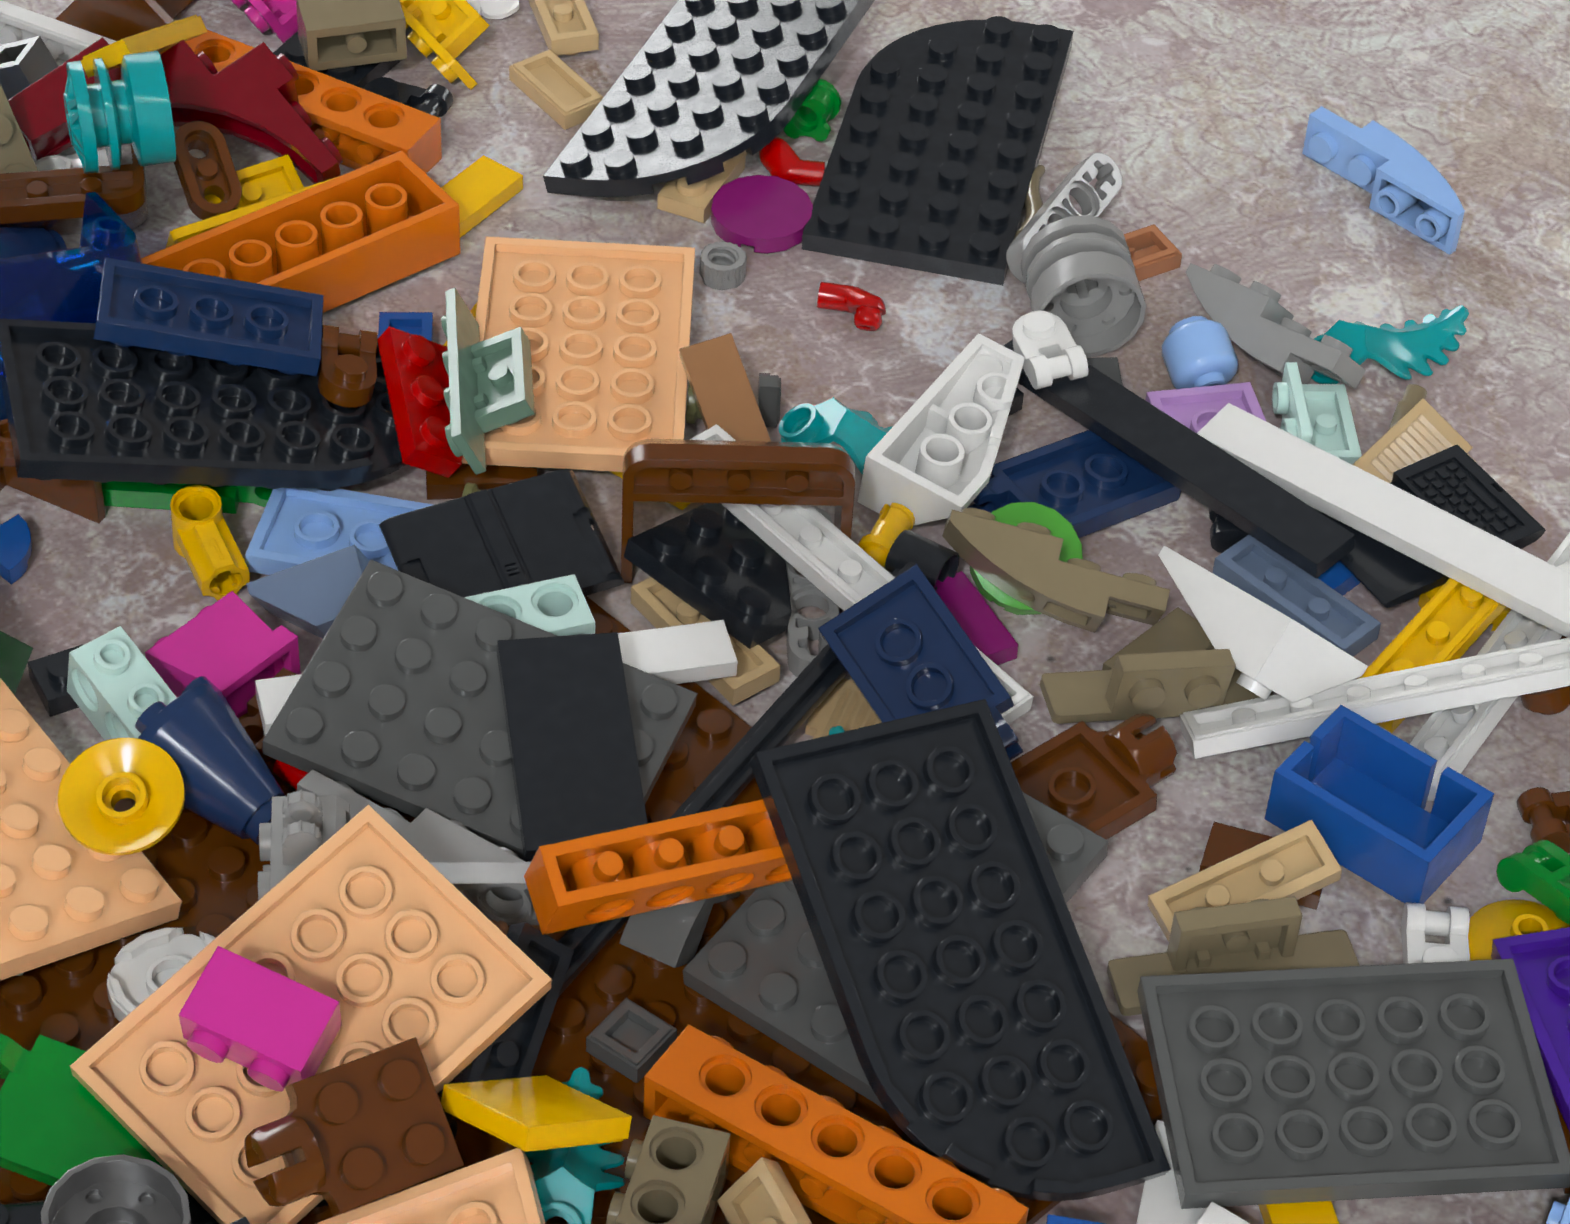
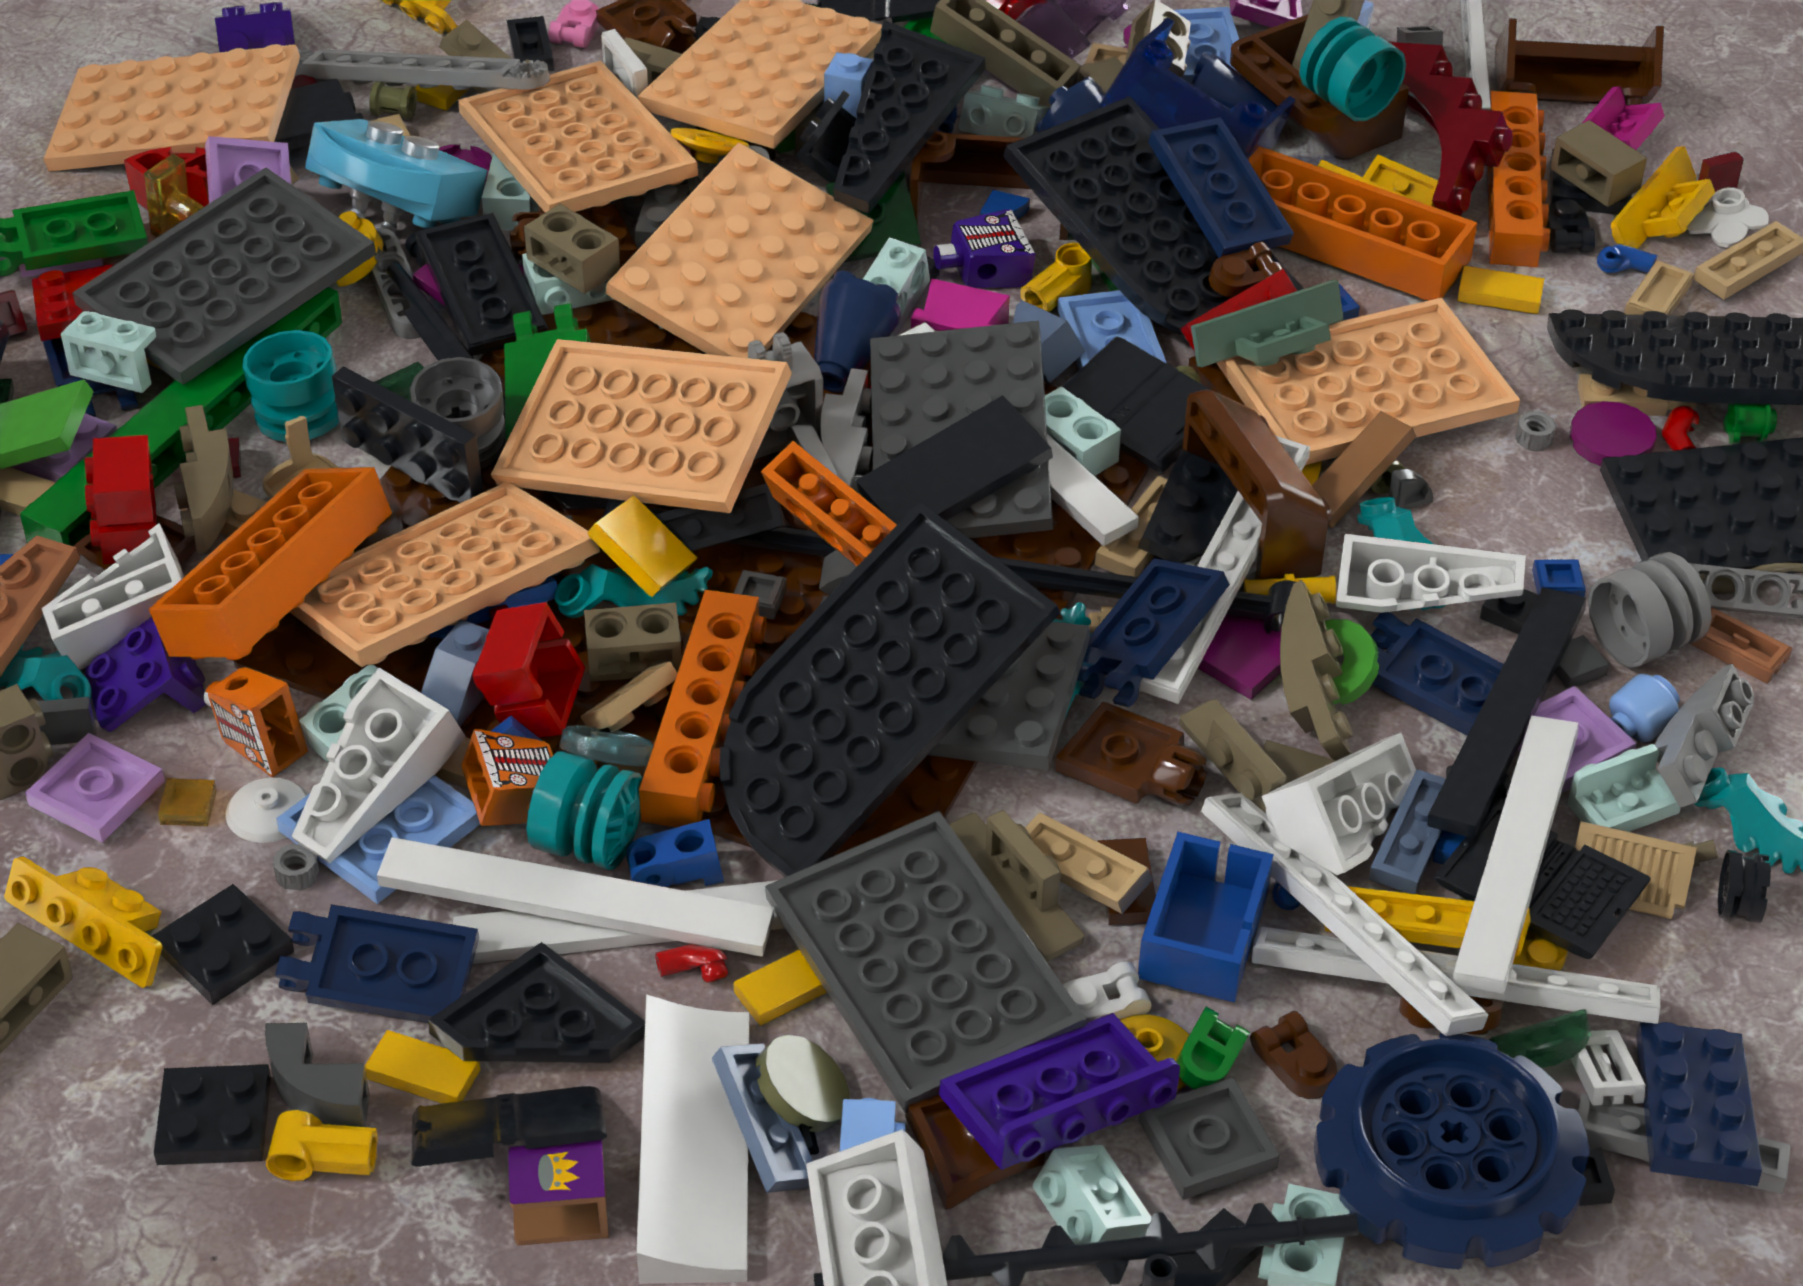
camera: 70 degrees right, 0 degrees up
(108, 583) = (988, 251): none -> dark purple torso
(114, 772) = (787, 297): yellow dish -> none
(152, 40) = (1451, 64): yellow tile -> none
(206, 175) = (1380, 151): reddish brown plate -> none
(259, 1020) = (611, 388): dark pink brick -> none
(357, 1133) = (571, 466): reddish brown plate -> none
(484, 86) = (1622, 257): none -> blue arm
(853, 299) = (1554, 508): red arm -> none
(953, 338) = (1559, 575): none -> blue tile
(1047, 349) = (1555, 607): white plate -> none
(1481, 390) = (1743, 886): none -> black wheel

